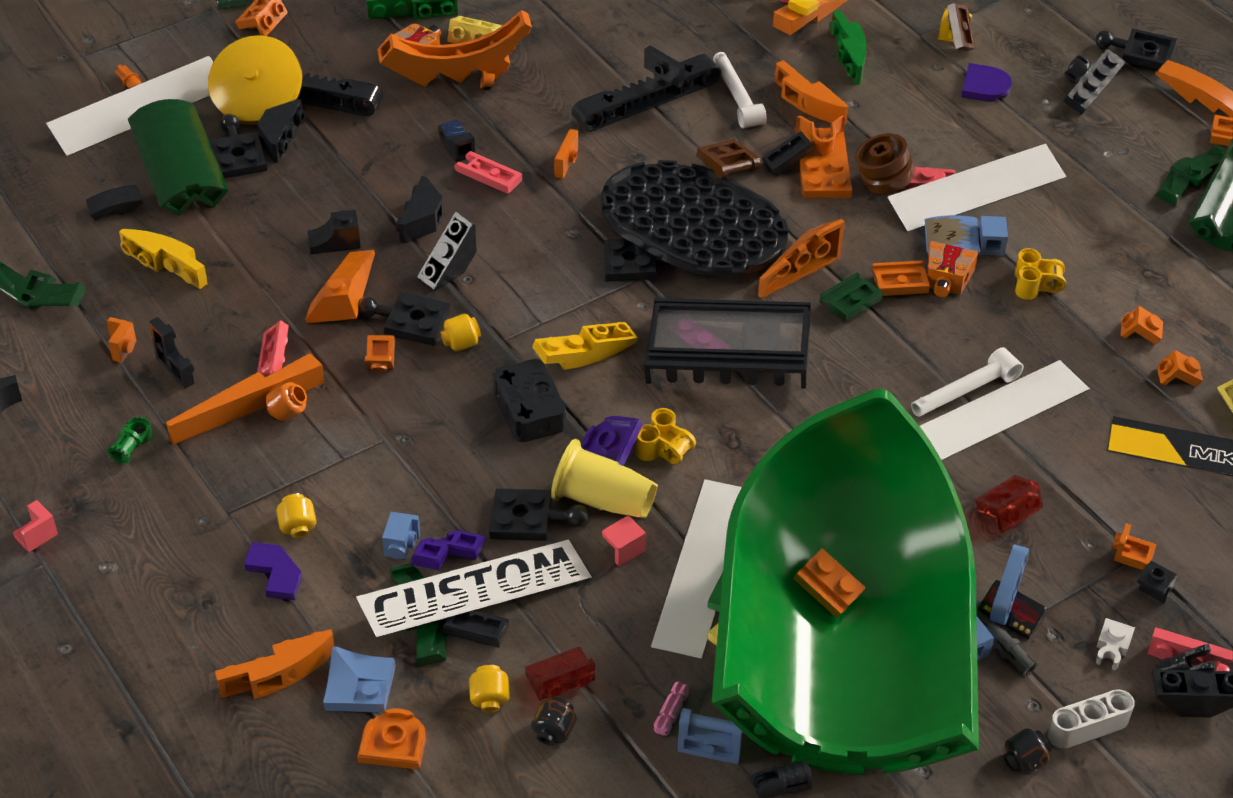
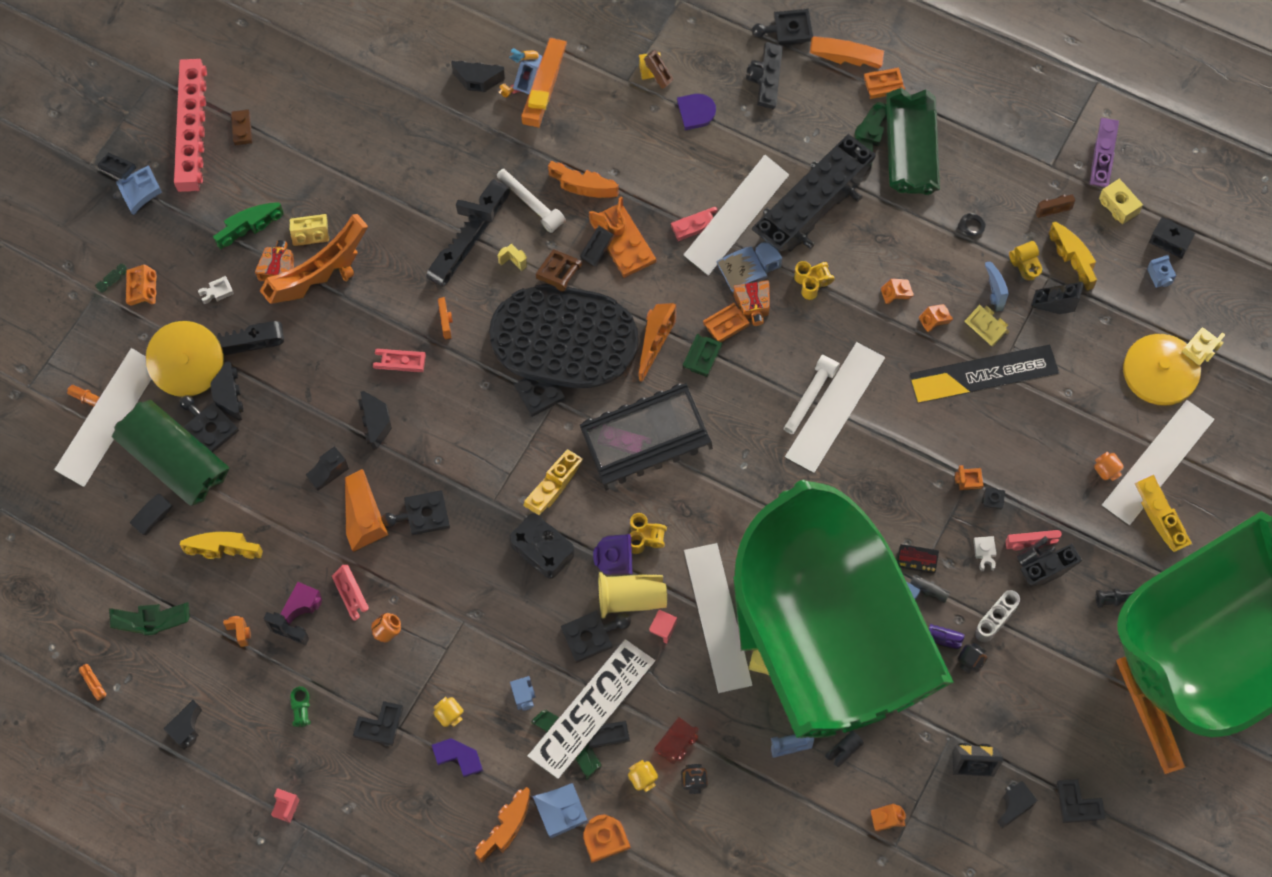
camera: 25 degrees left, 20 degrees up
(208, 340) = (301, 601): none -> magenta arch
(210, 501) = (384, 728): none -> black plate
(243, 399) = (357, 634): orange slope -> none
(337, 46) = (219, 289): none -> white plate
(380, 352) = (421, 555): orange bracket -> none
(432, 552) = (559, 680): dark purple tile -> none
(451, 253) = (420, 451): black slope -> none
(455, 137) = (359, 341): black leg -> none
(460, 332) = (465, 513): yellow head -> none
(671, 708) = (755, 731): bright pink axle -> none
(681, 126) = (517, 257): none -> light yellow bracket
(829, 583) = (805, 598): orange plate -> none
(851, 44) = (590, 120): green slope -> none
(885, 163) = (670, 229): reddish brown wheel -> none
(1001, 711) = (946, 636): none -> dark purple hinge
(1009, 584) = (912, 547): medium blue beam -> none
(1011, 501) = (879, 476): clear red bracket -> none
(1110, 189) = (814, 195): none -> black piece

